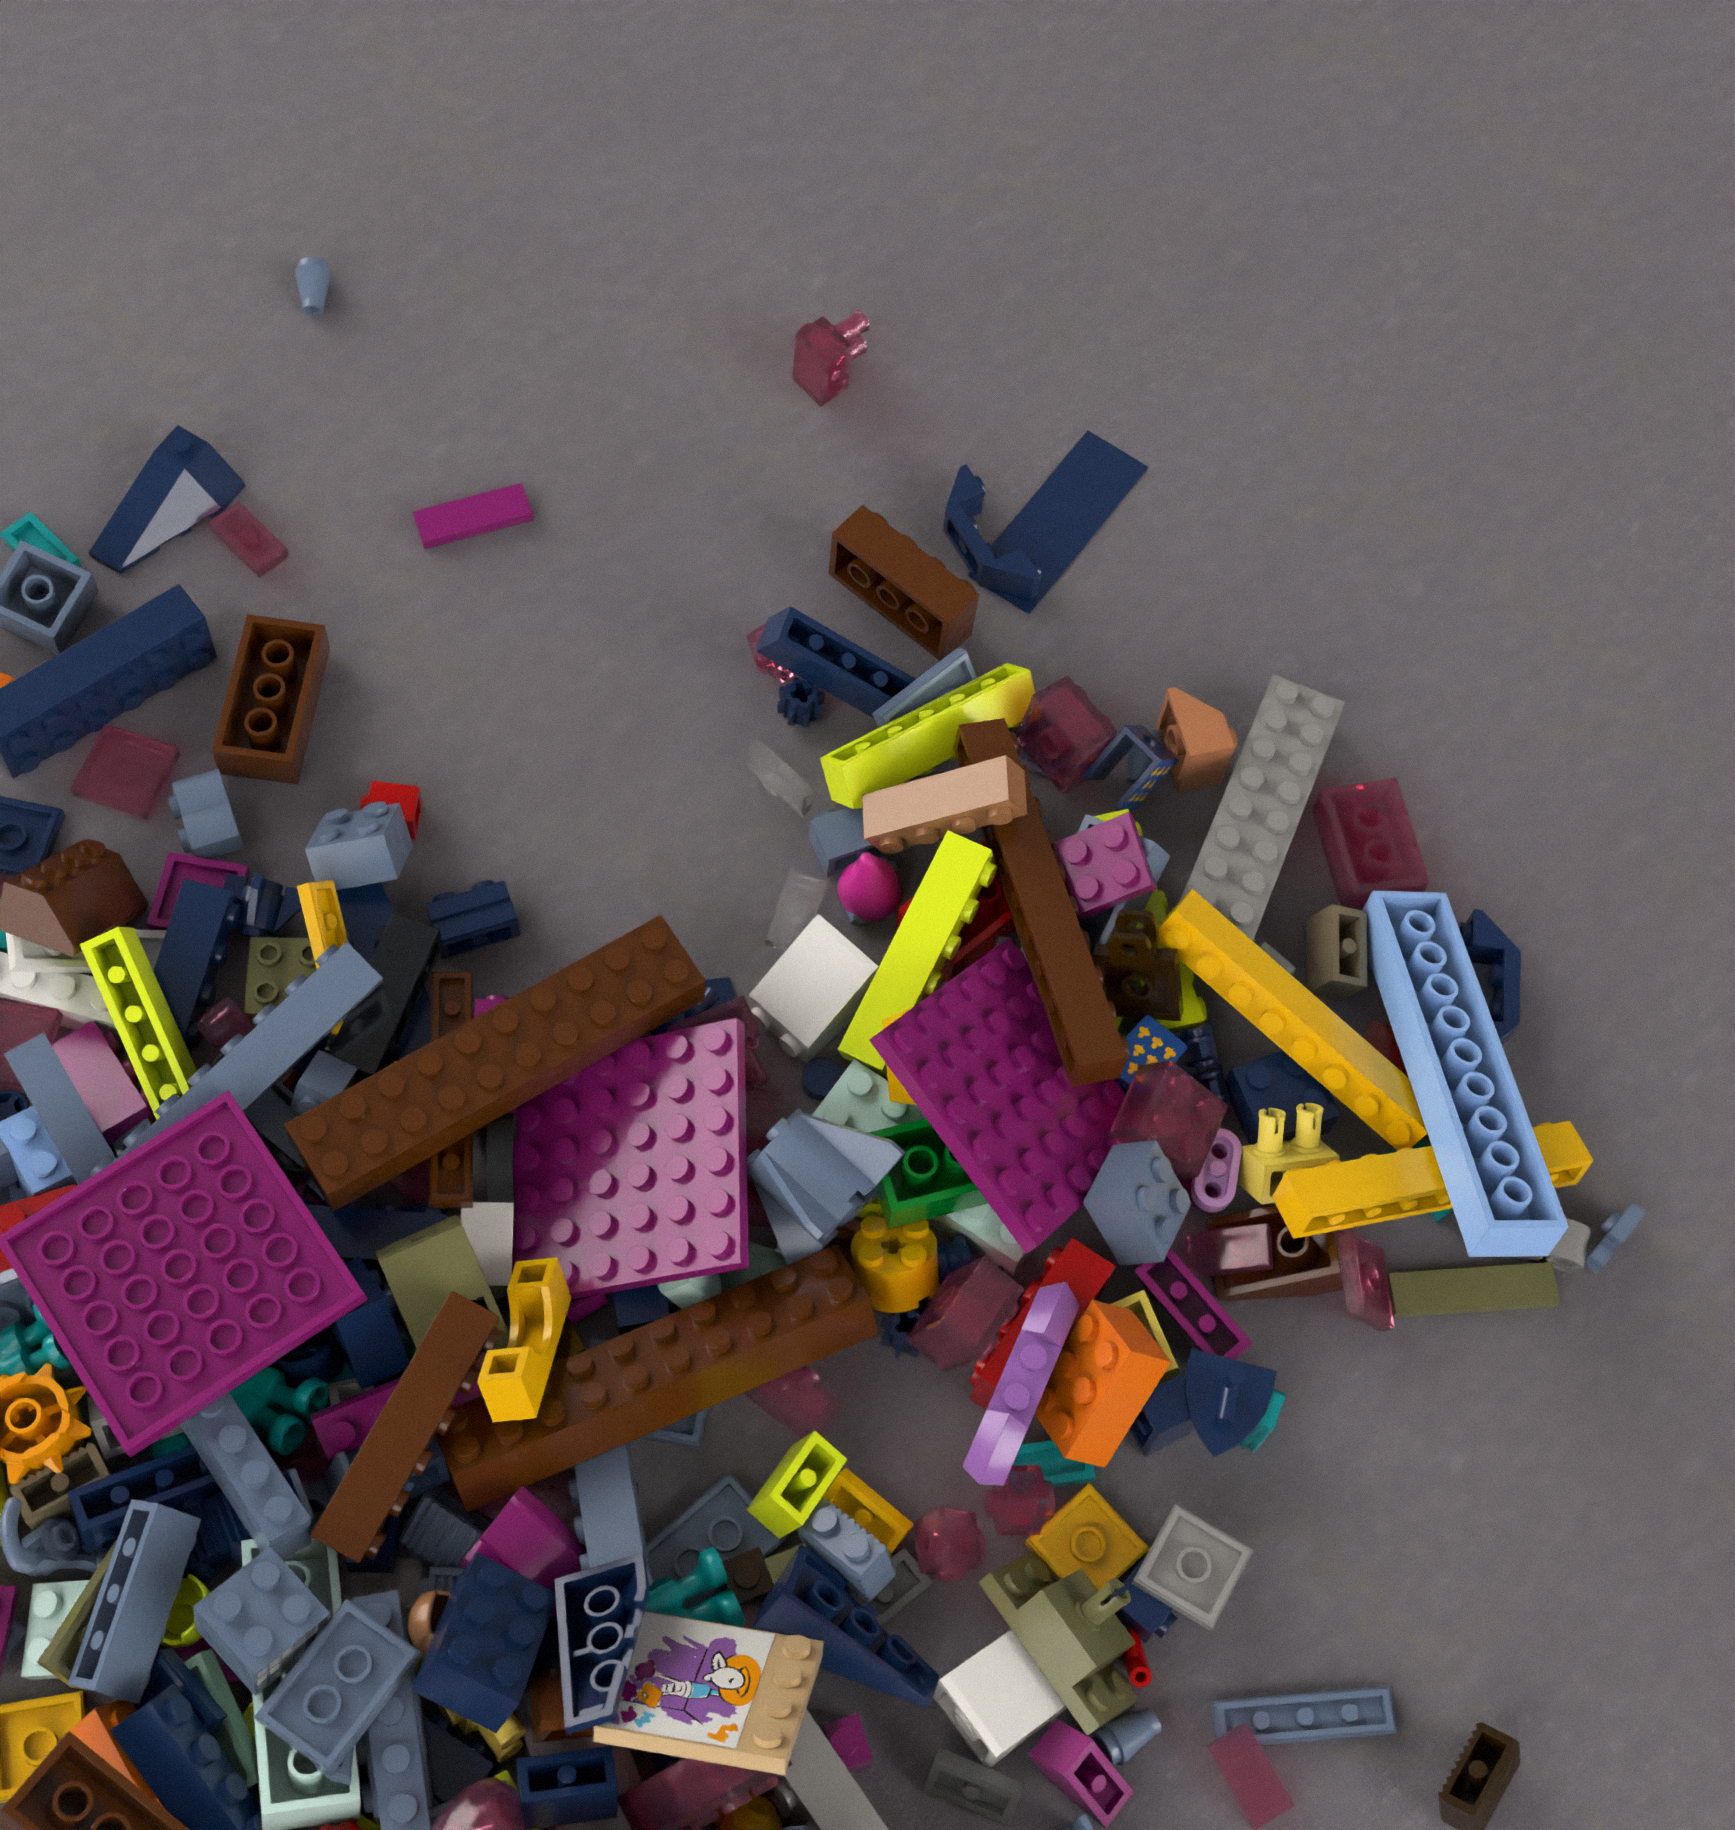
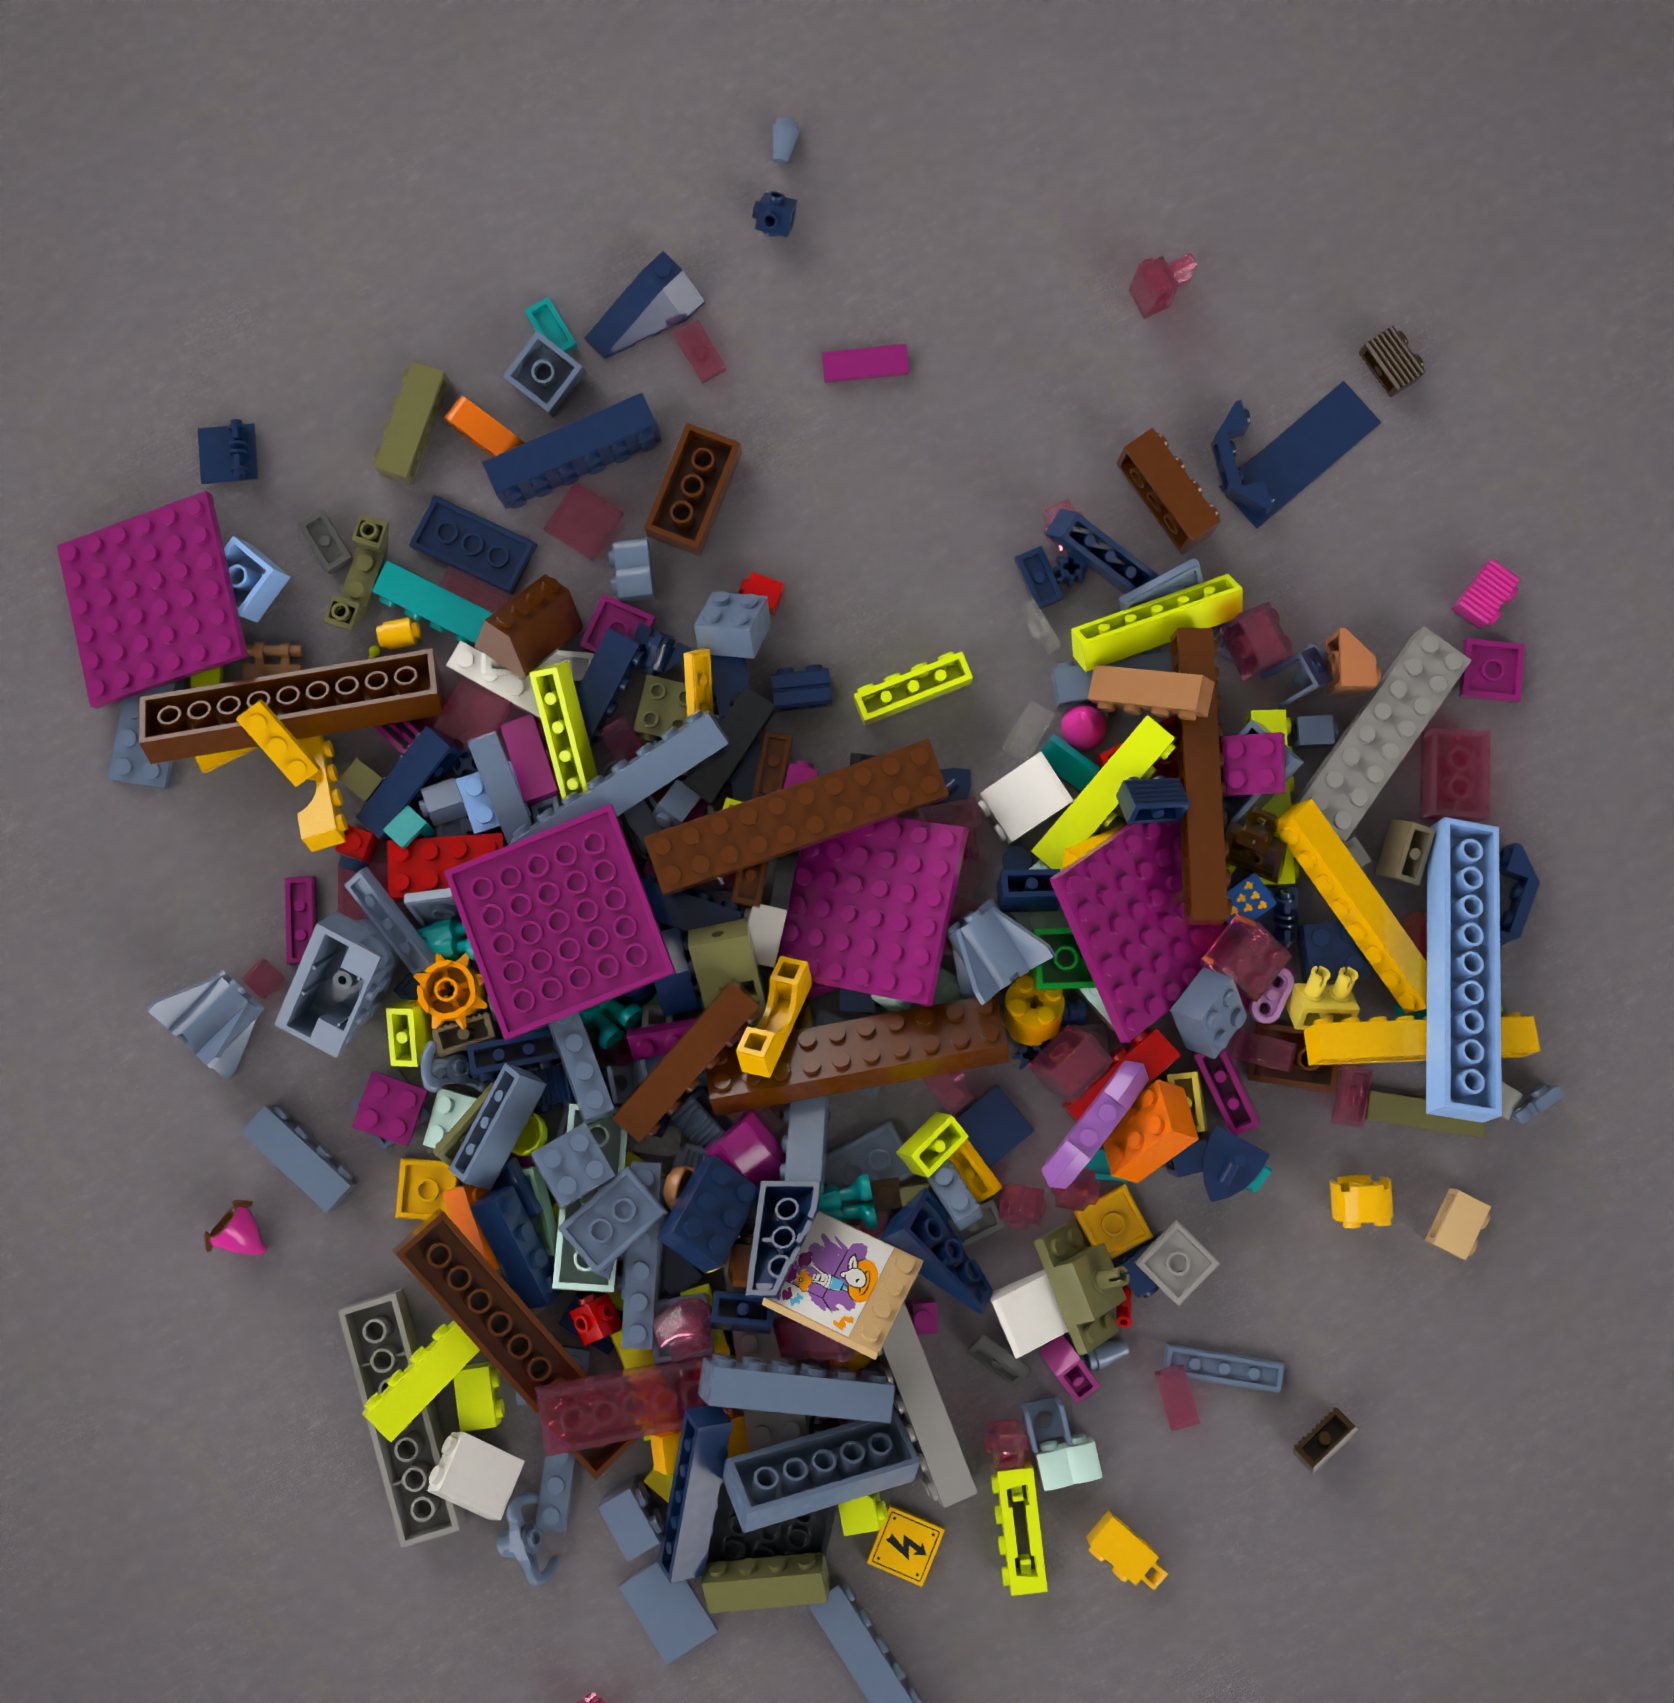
camera: 25 degrees right, 20 degrees up
(328, 357) = (775, 214): none -> dark blue brick
(625, 884) = (913, 688): none -> neon yellow brick
(762, 719) = (1039, 577): none -> dark blue plate
(849, 1090) = (1026, 890): none -> dark blue brick
(865, 933) = (1069, 762): none -> teal tile
(883, 1444) = (994, 1126): none -> dark blue tile
(984, 933) = (1152, 800): none -> dark blue brick
(1140, 394) = (1392, 361): none -> dark brown brick
(1175, 830) = (1313, 731): none -> sand blue brick
(1339, 629) = (1486, 594): none -> dark pink brick
(1376, 717) = (1493, 670): none -> magenta plate
(1423, 1417) = (1361, 1200): none -> yellow brick
(1565, 1425) = (1458, 1224): none -> tan brick

